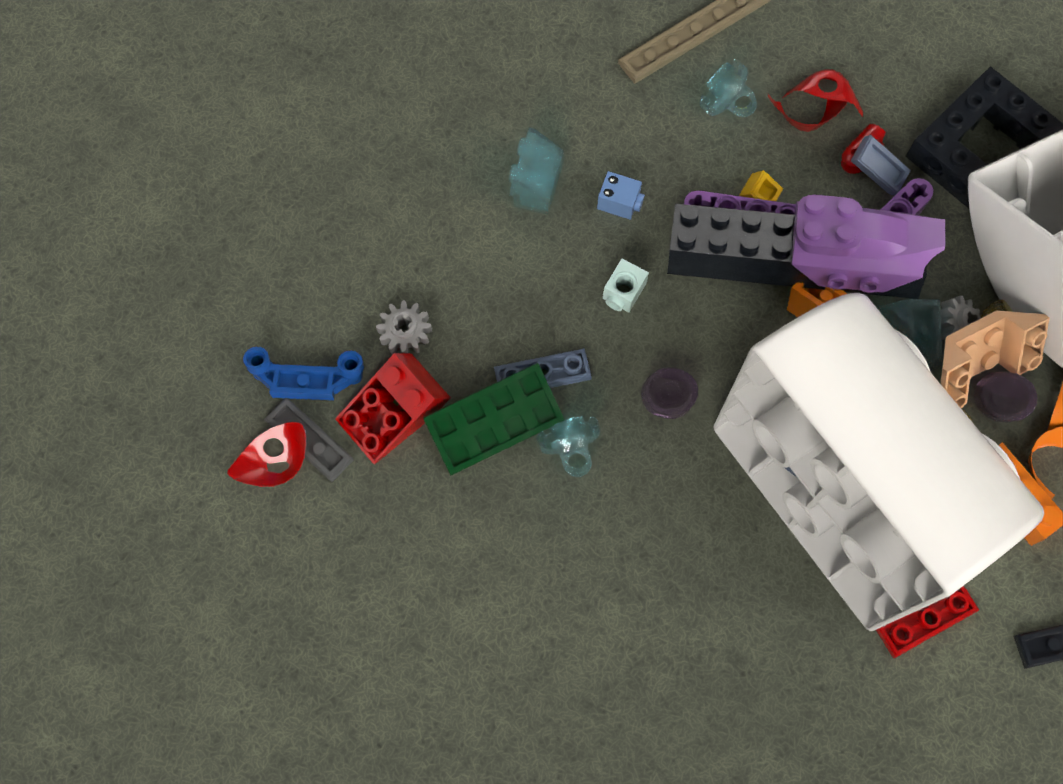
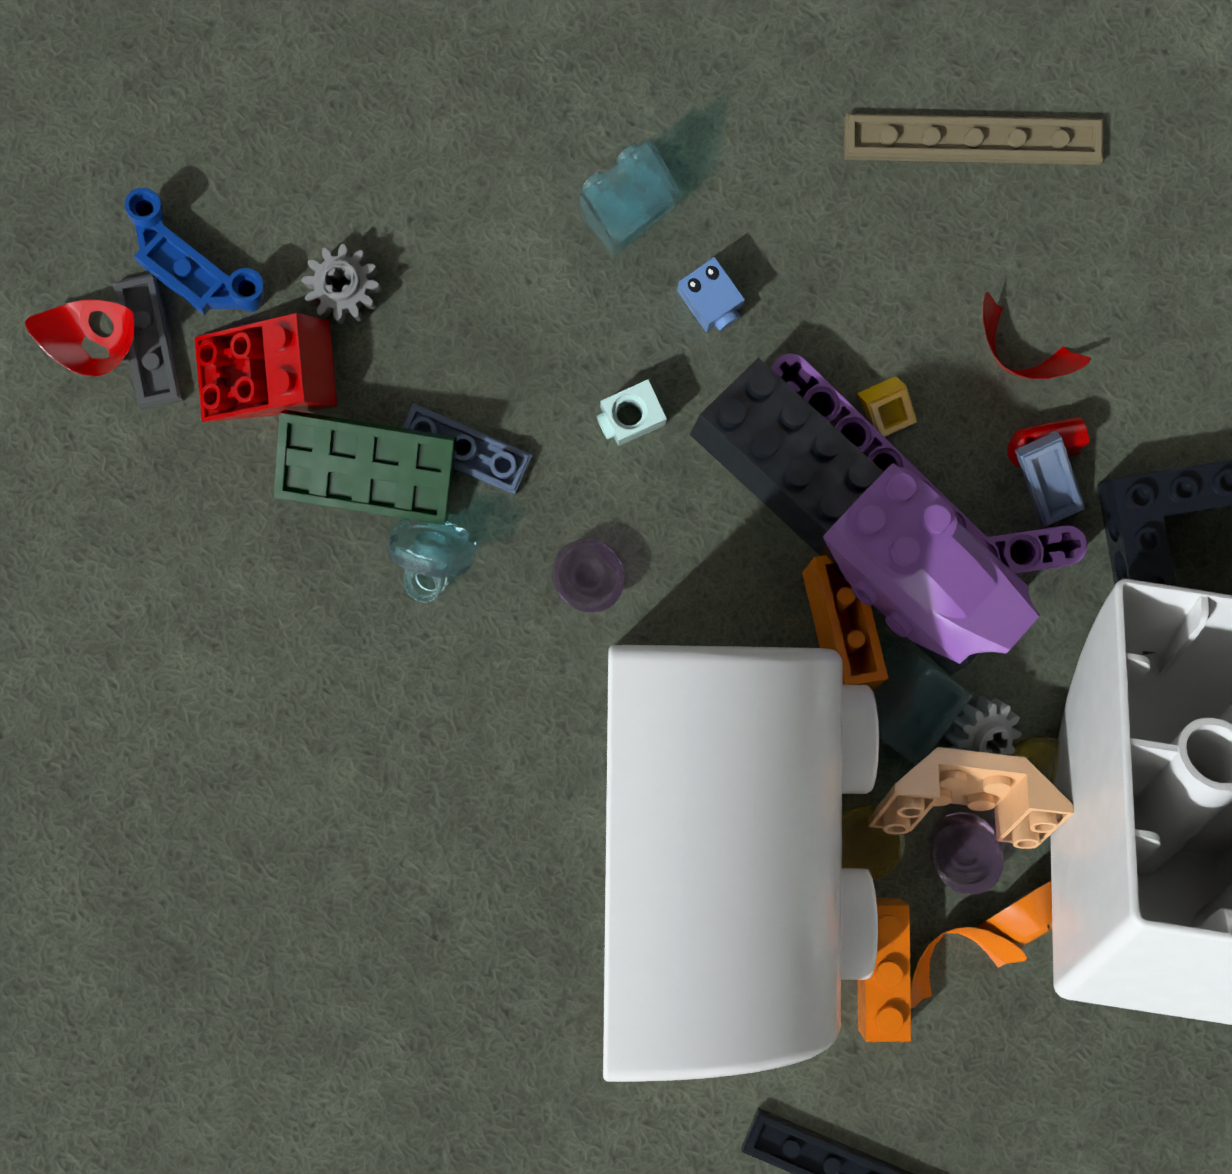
camera: 30 degrees right, 15 degrees up
(726, 88) = (940, 251): clear light blue tile -> none
(842, 93) = (1080, 358): red piece -> none

